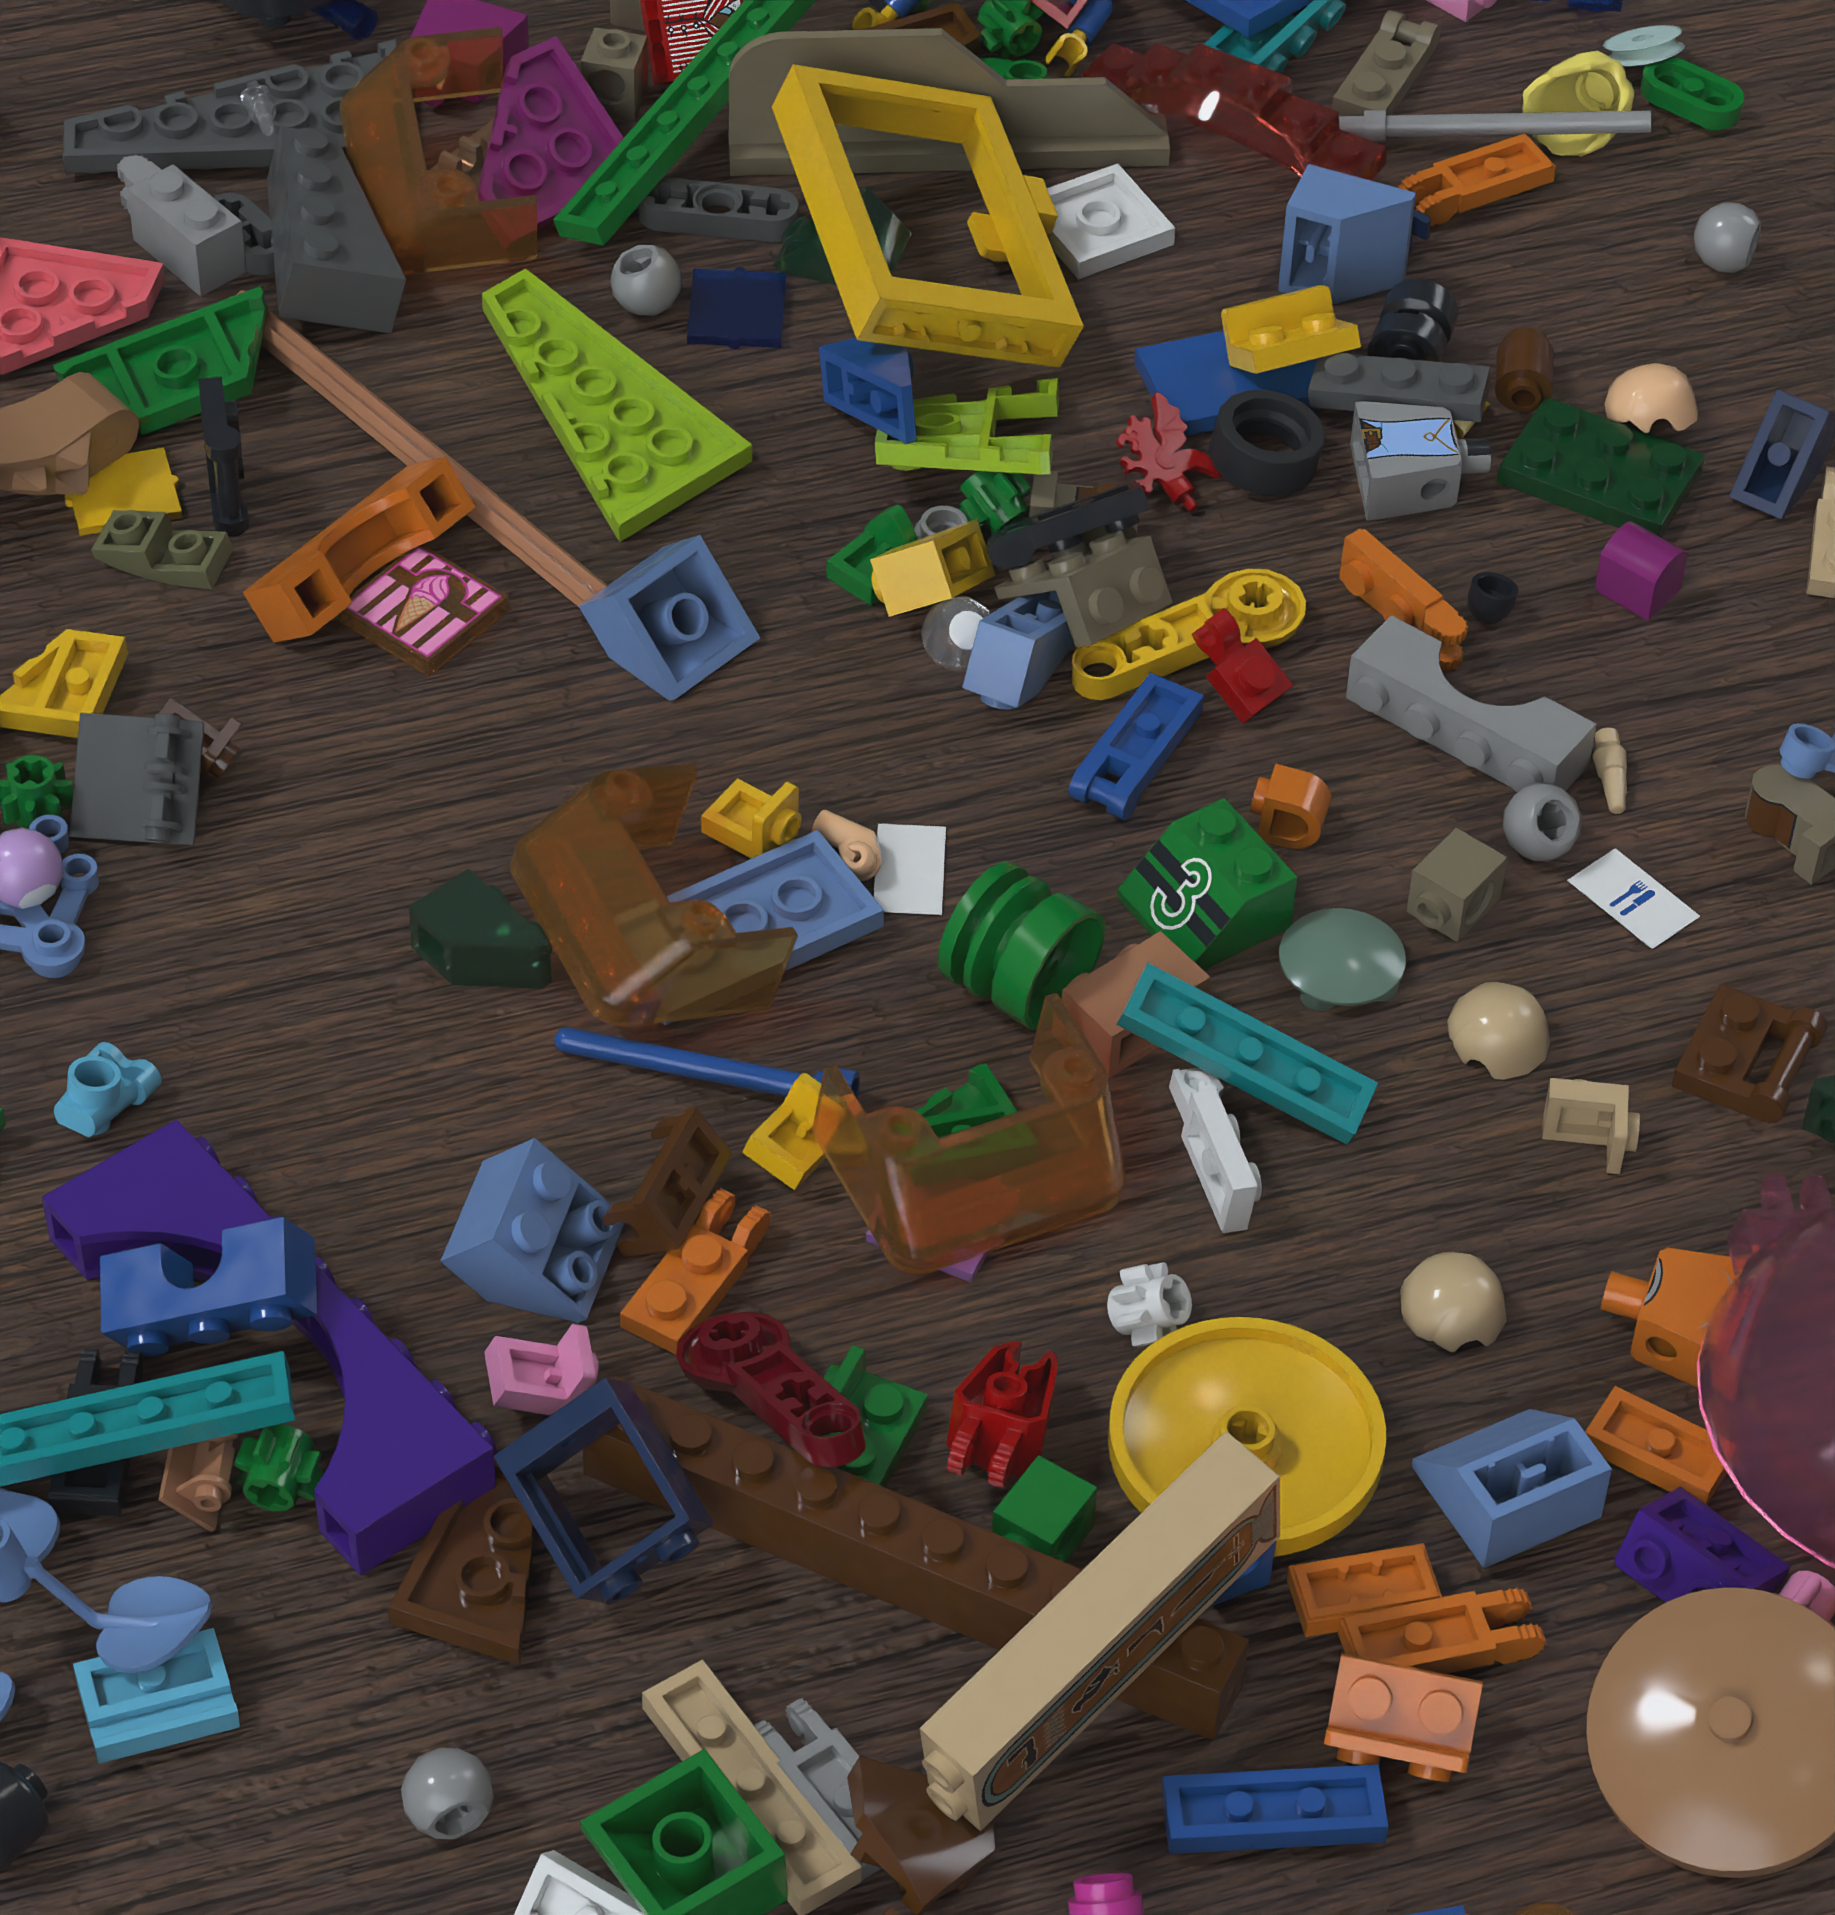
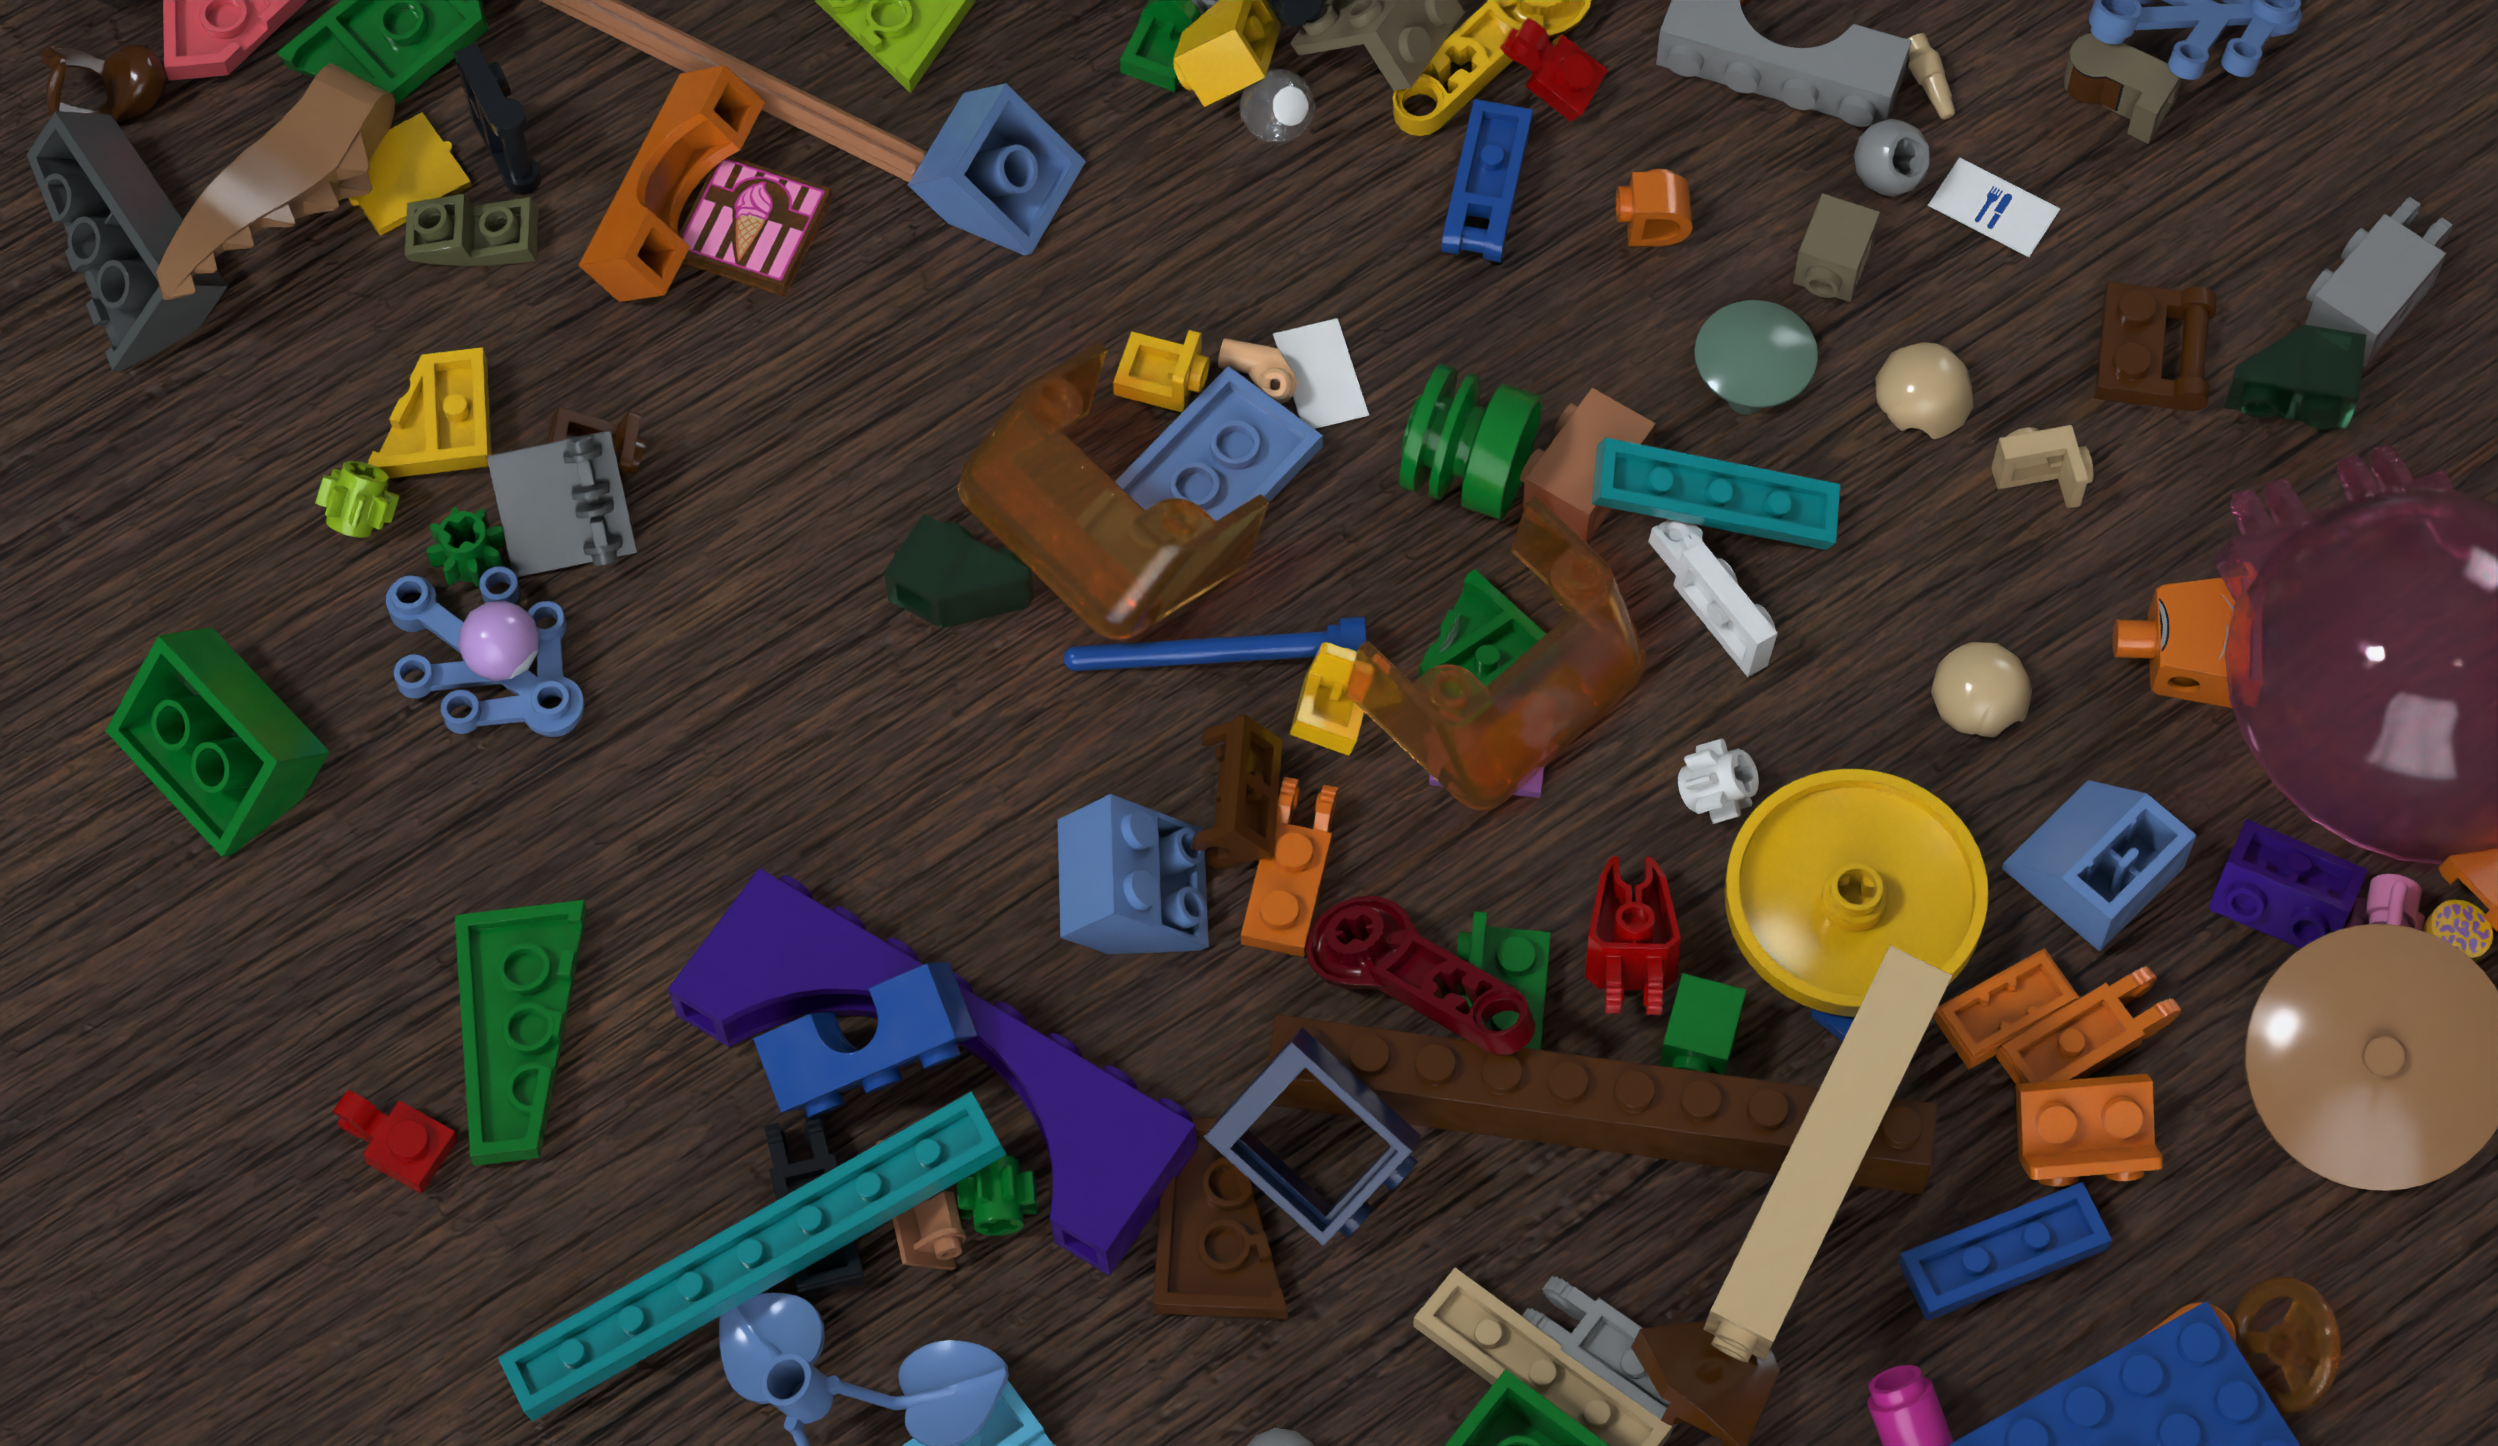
camera: 15 degrees left, 15 degrees up
(102, 1088) = (668, 846): medium azure plate -> none
(540, 1375) = (1196, 1021): bright pink bracket -> none
(1018, 650) = (1342, 111): medium blue slope -> none
(1211, 886) = (1612, 319): green slope -> none
(1656, 1445) = (2211, 783): orange plate -> none

